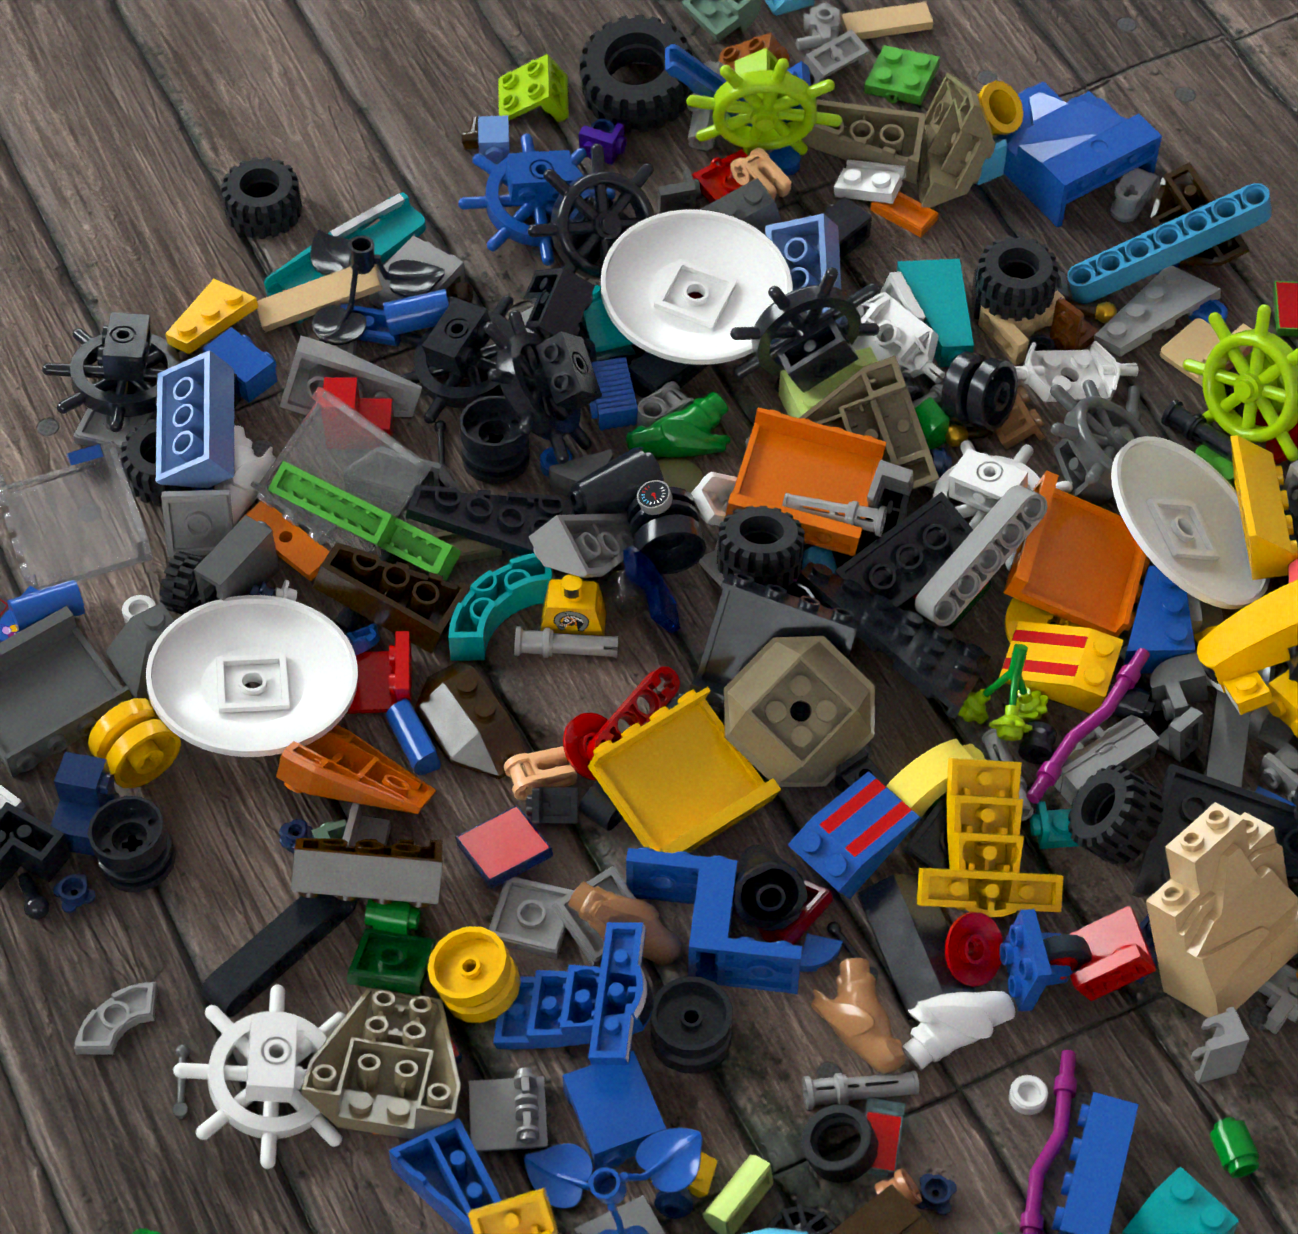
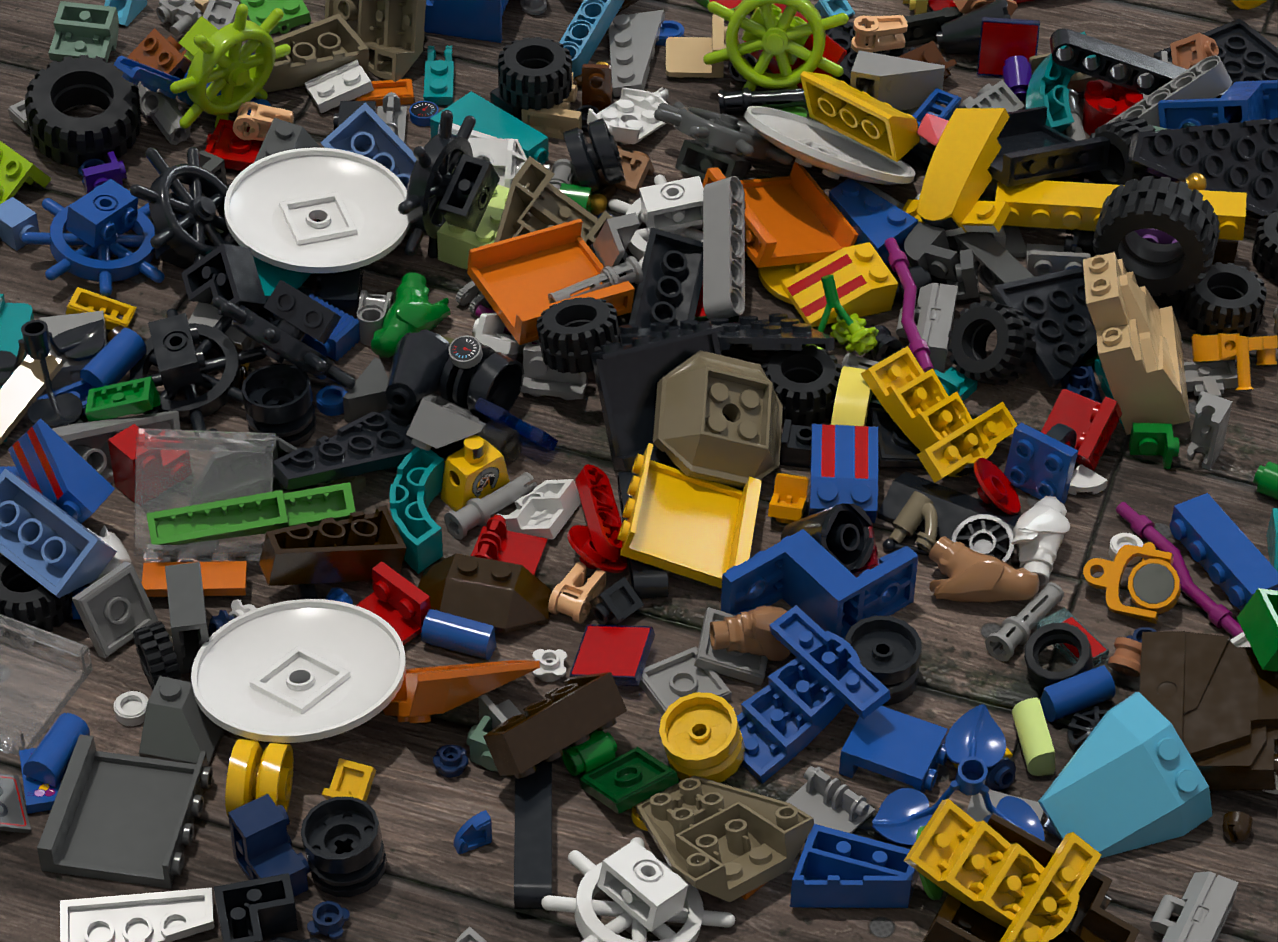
camera: 45 degrees left, 10 degrees down
(200, 798) = (350, 780): none -> yellow bracket
(242, 910) = (474, 833): none -> blue tile
(263, 394) = (59, 472): none -> blue slope
(386, 350) = (122, 399): none -> green bracket
(456, 823) = (551, 664): none -> white plate
(471, 239) = (88, 301): none -> yellow slope
(531, 695) = (508, 546): none -> red hinge
(598, 679) = (544, 509): none -> white slope
(786, 823) = (788, 498): none -> light orange bracket
(818, 1188) = (1077, 693): none -> blue brick
(874, 918) = (911, 516): none -> dark tan plant
(875, 243) = (393, 114): none -> light grey hinge
(904, 990) = (983, 540): none -> wheel
(909, 706) = (804, 383): none -> black tyre
(915, 250) = (422, 112): none -> tile
(964, 226) = (439, 77): none -> teal hinge
(989, 1145) = (1151, 584): none -> light orange piece
(1065, 1003) = (1086, 481): none -> white tile
(1168, 1015) = (1154, 440): none -> green bracket

